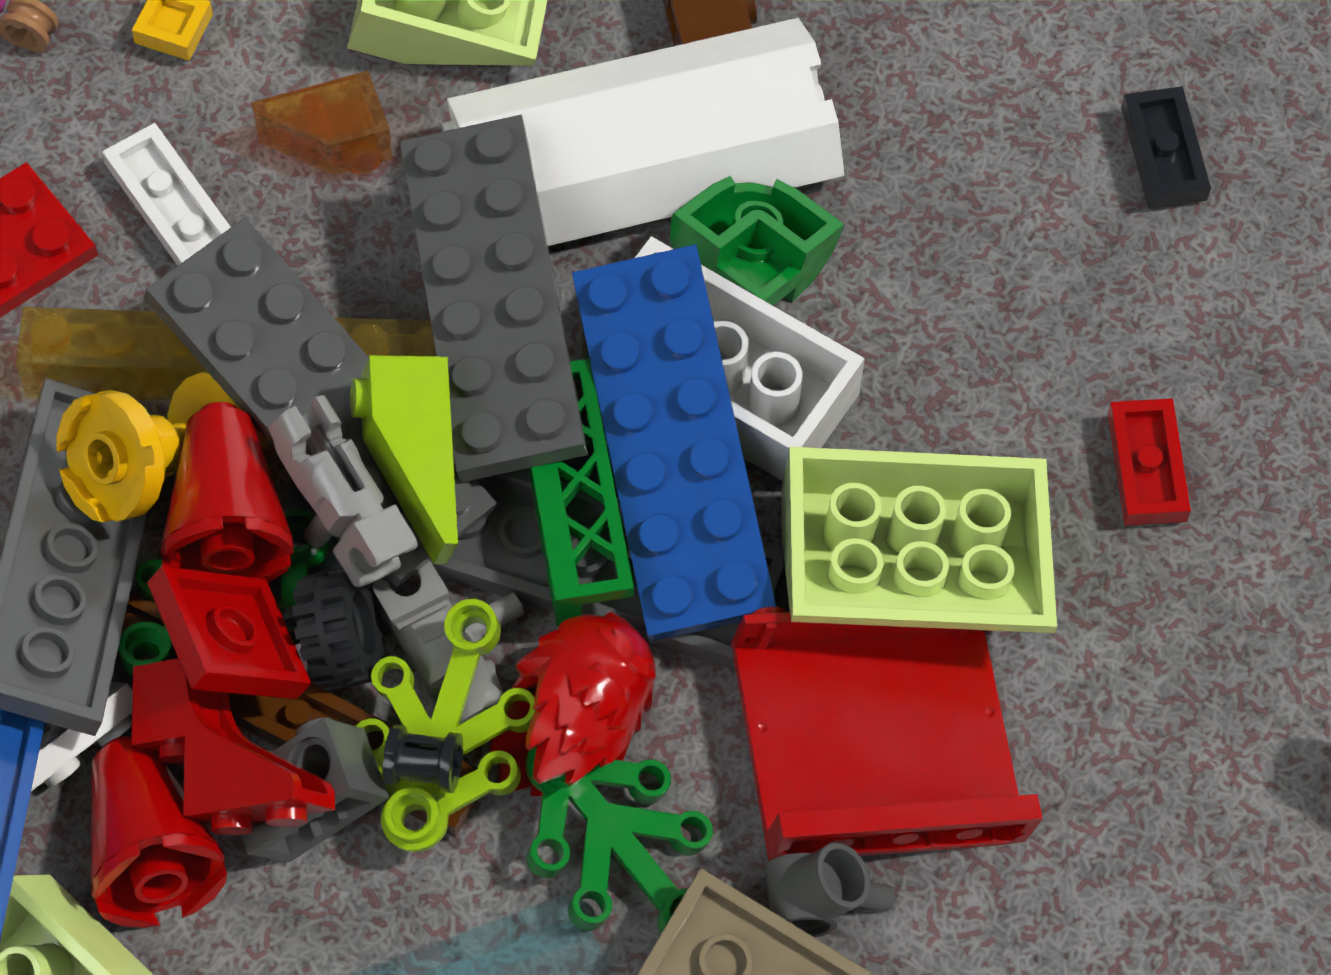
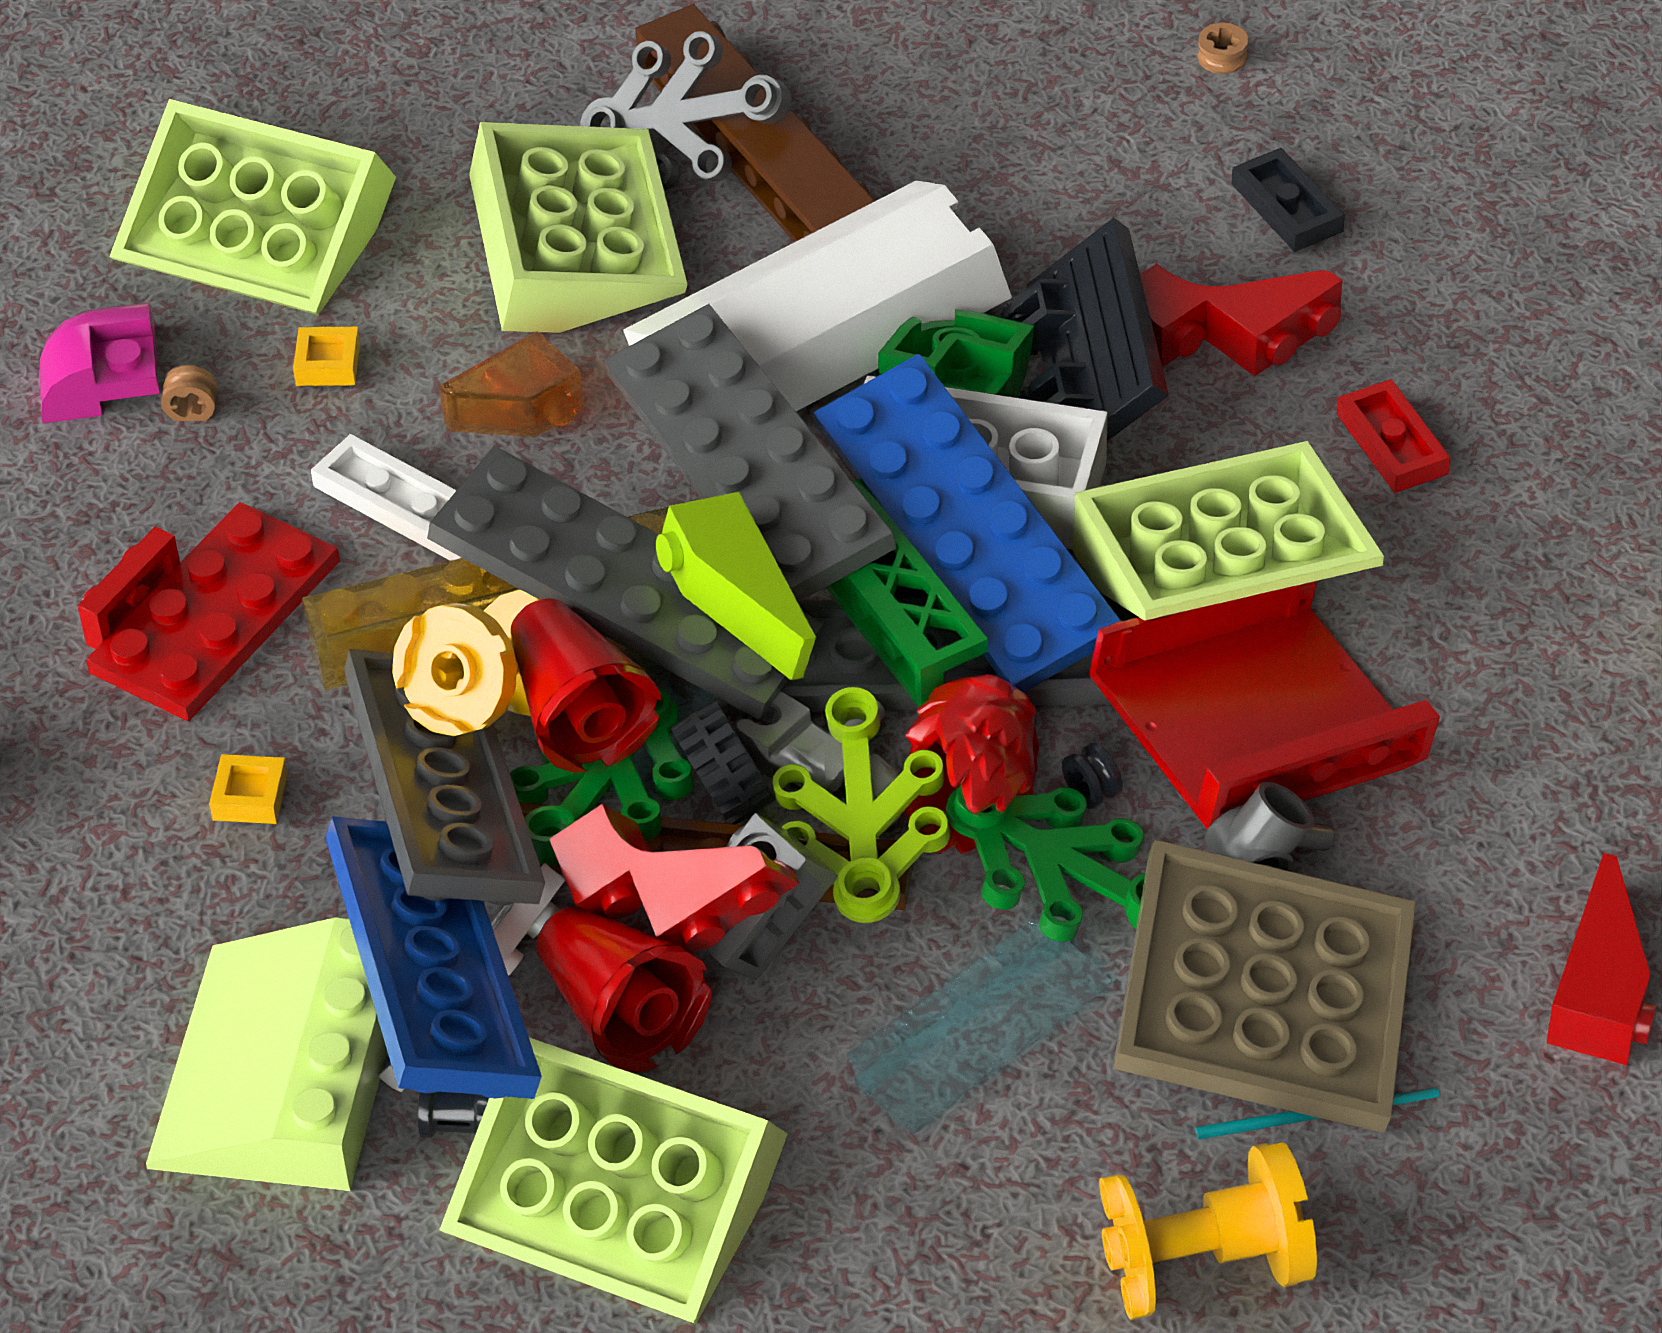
camera: 15 degrees left, 15 degrees down
(228, 633) = (630, 779): red plate -> none
(340, 494) = (688, 633): light grey piece -> none
(423, 758) = (858, 827): black bush -> none
(689, 754) = (1092, 774): none -> black bush
(901, 254) = (1093, 331): none -> black hinge
(1065, 282) = (1247, 321): none -> red arch

